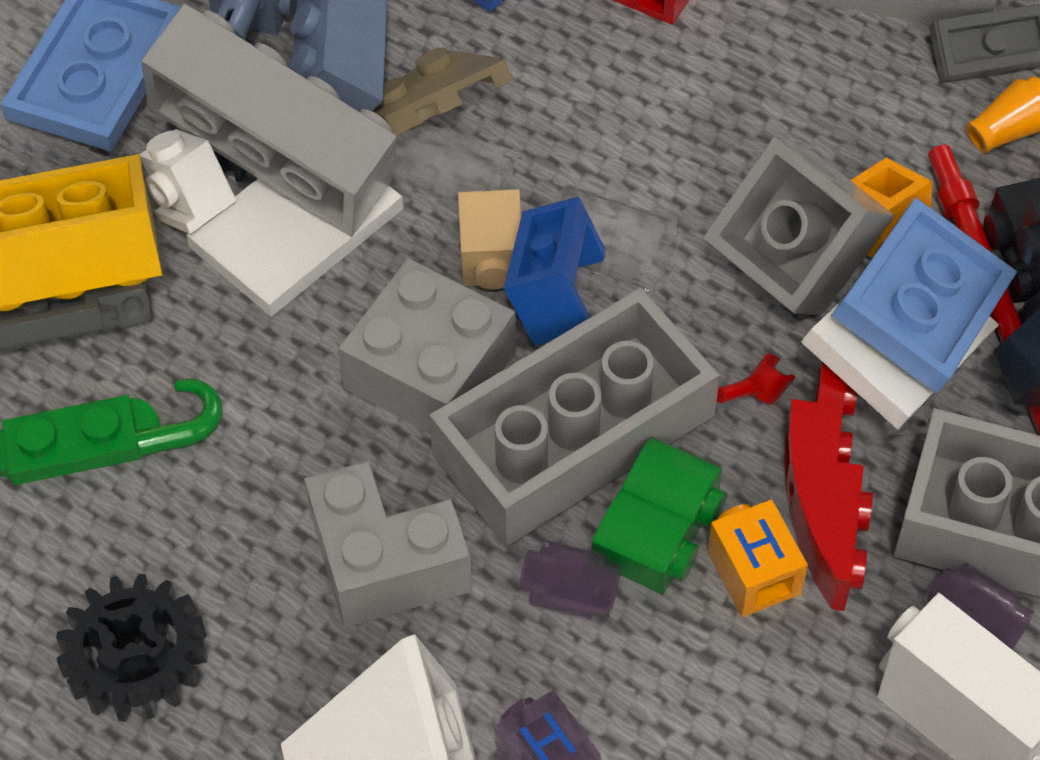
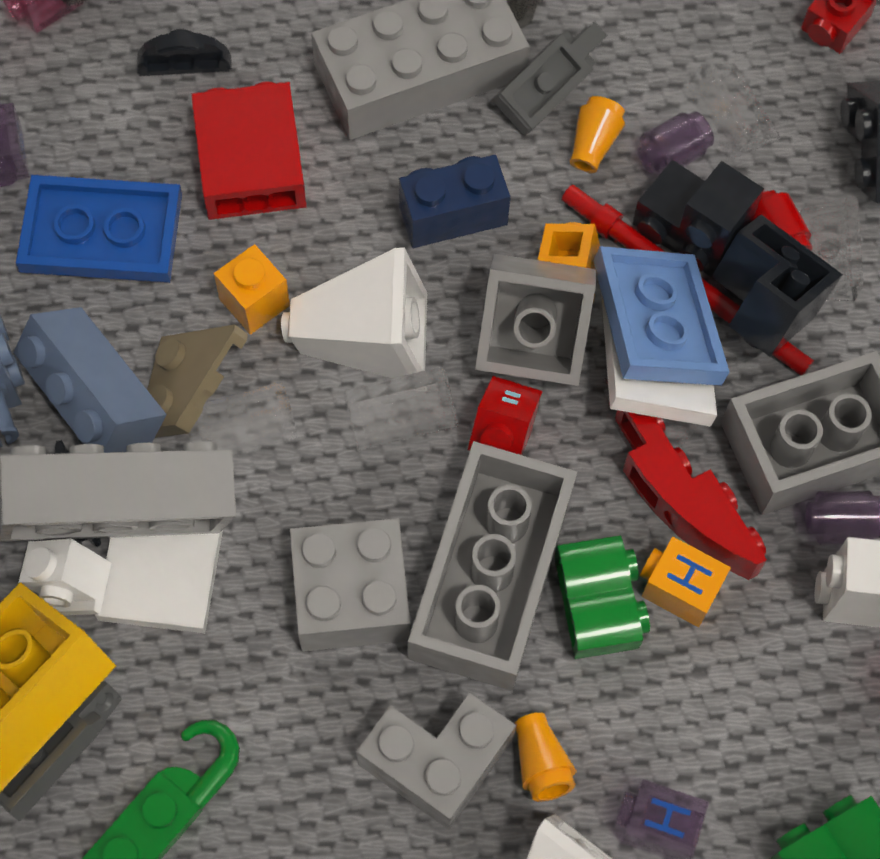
camera: 40 degrees left, 10 degrees up
(478, 623) = (543, 762): none -> light orange cone
(487, 235) = (322, 467): tan brick -> none
(544, 267) = (394, 466): blue panel -> none
(555, 53) = (252, 289): none -> light orange brick
(570, 580) = (580, 686): clear purple brick -> none
(643, 136) = (364, 318): none -> white slope
(701, 298) = (506, 415): none -> red brick
(763, 383) = (585, 448): red hand -> none
(812, 89) = (454, 200): none -> dark blue brick

